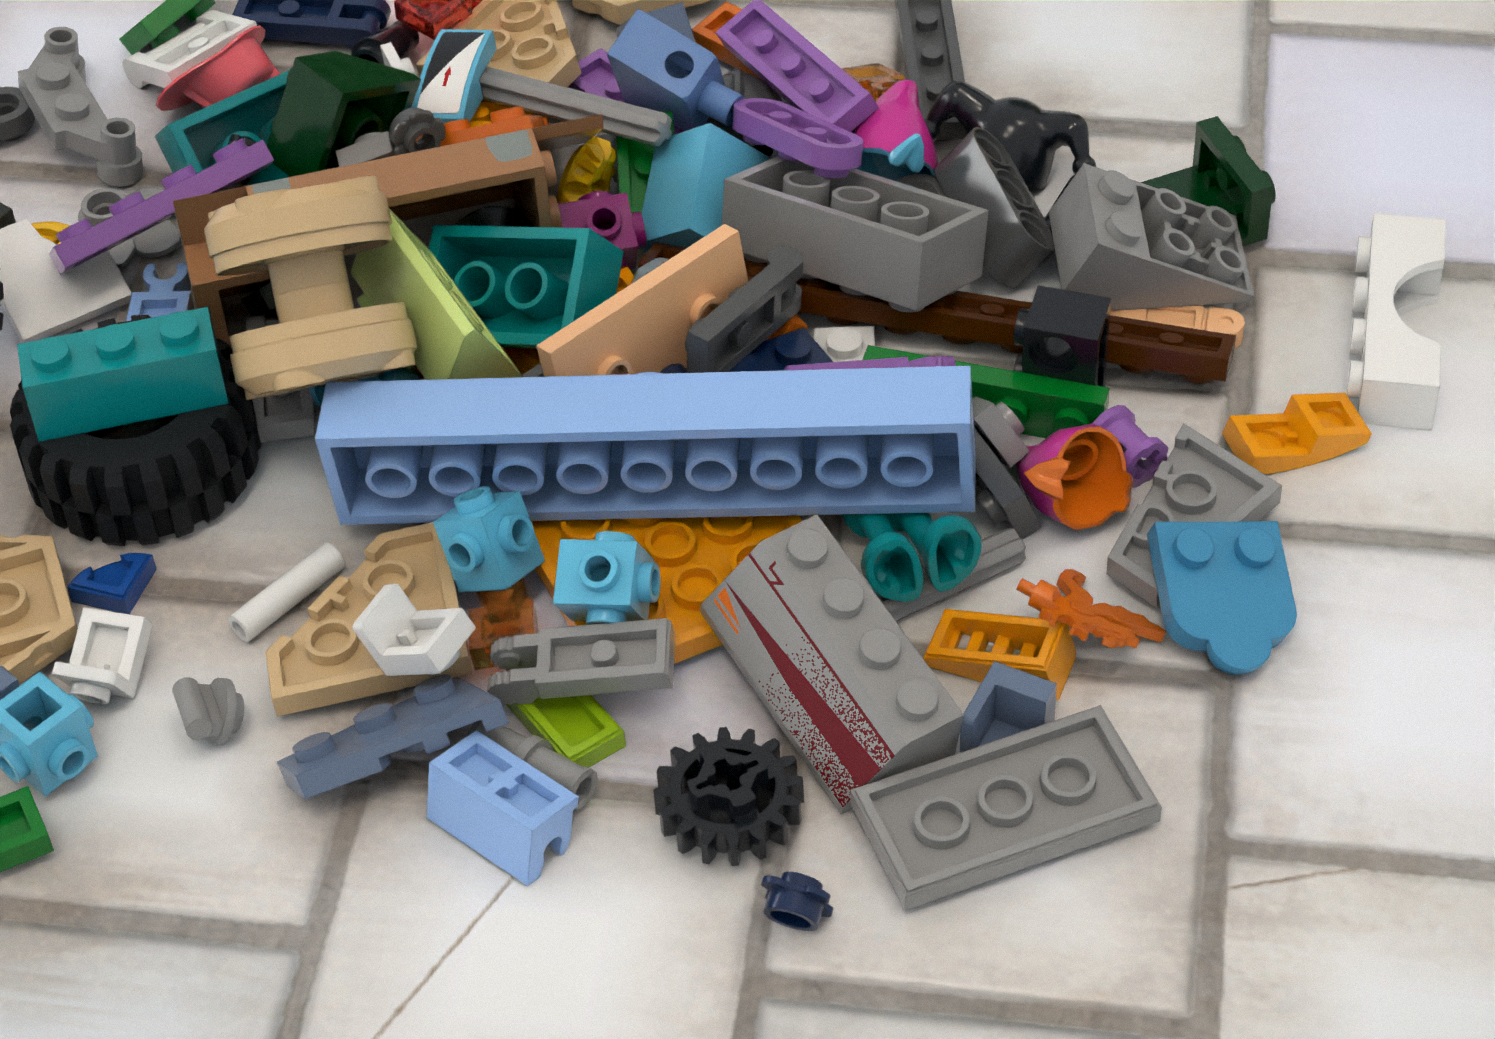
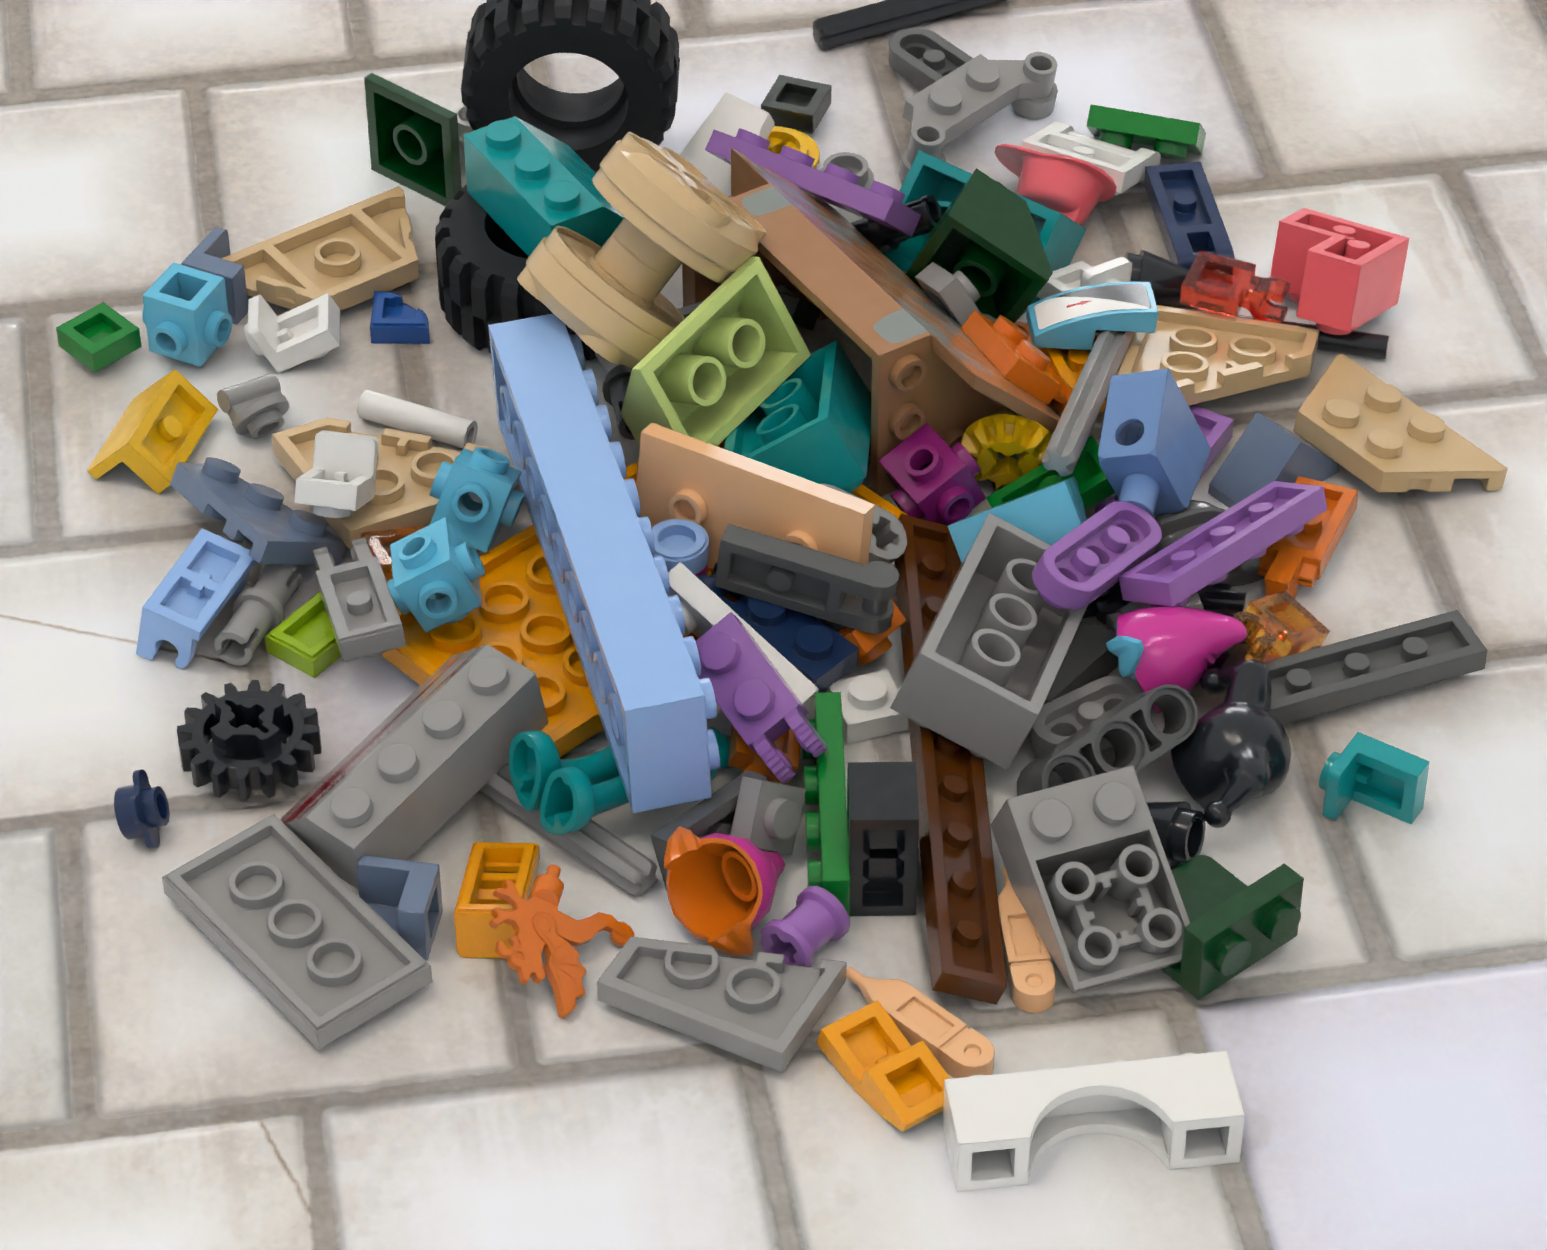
camera: 70 degrees right, 5 degrees down
(194, 812) = (157, 431): none -> yellow panel
(410, 125) = (958, 296): dark grey plate -> none
(1068, 74) = (1375, 777): none -> teal bracket
(1223, 589) = (616, 1033): dark azure plate -> none
(1259, 395) = (919, 1018): none -> light nougat piece

